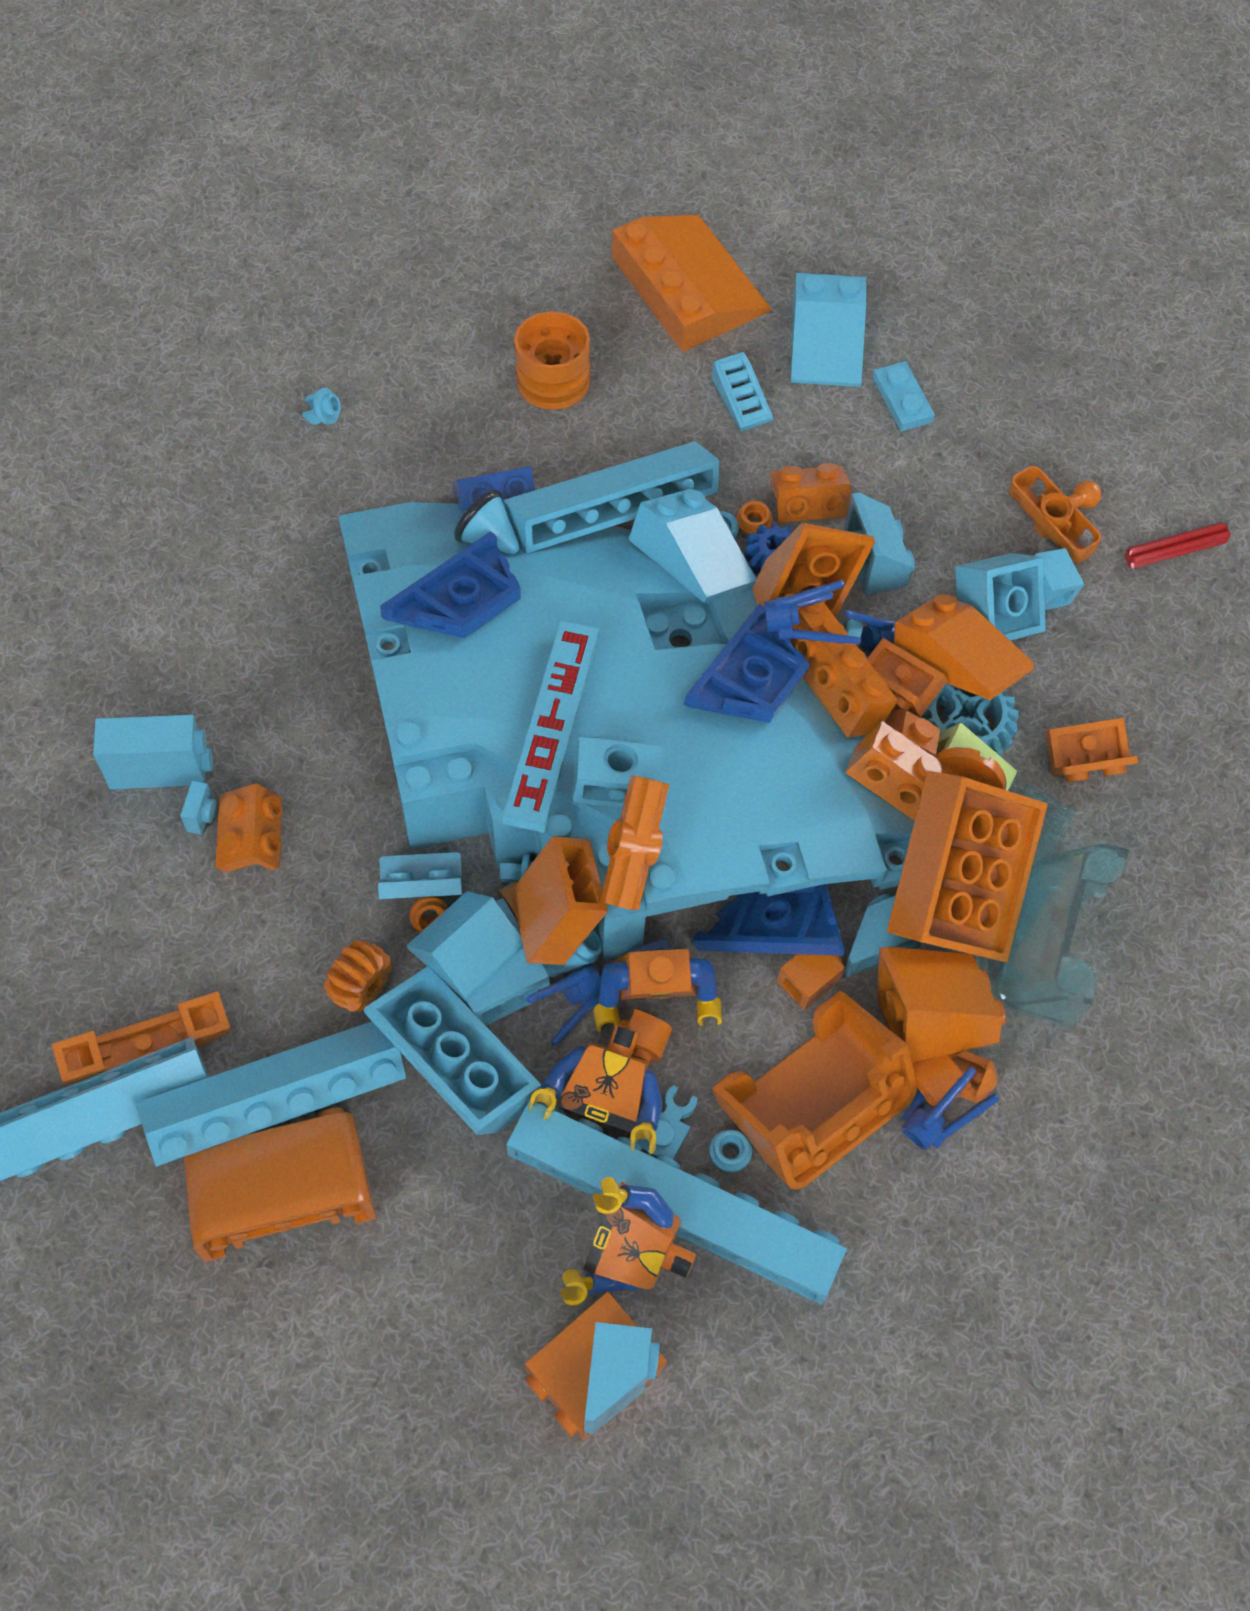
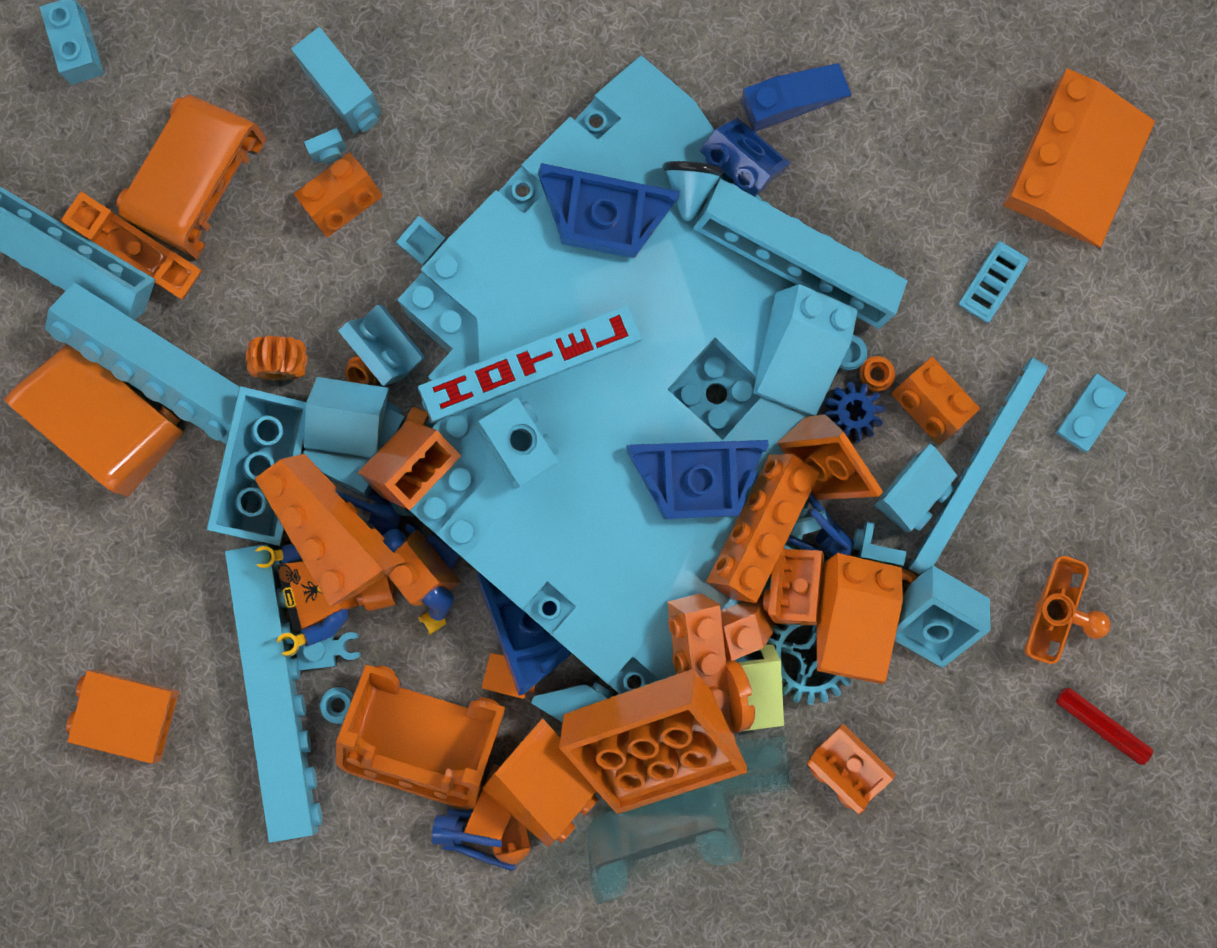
camera: 60 degrees right, 20 degrees up
(120, 939) = (188, 172): none -> orange windscreen
(351, 788) = (421, 240): none -> medium azure plate
(468, 433) = (793, 95): none -> blue slope
(552, 360) = (915, 101): orange wheel -> none
(568, 1012) = (326, 530): none -> orange wedge
(618, 1371) = (108, 739): medium azure slope -> none
(629, 1245) = (213, 684): torso -> none
(634, 842) = (463, 496): orange piece -> none
(783, 613) = (762, 468): blue plant -> none
(828, 329) = (1107, 310): medium azure slope -> none
(889, 491) = (981, 463): none -> medium azure beam
(892, 609) = (880, 554): none -> medium azure bracket
(1060, 578) = (993, 649): medium azure panel -> none

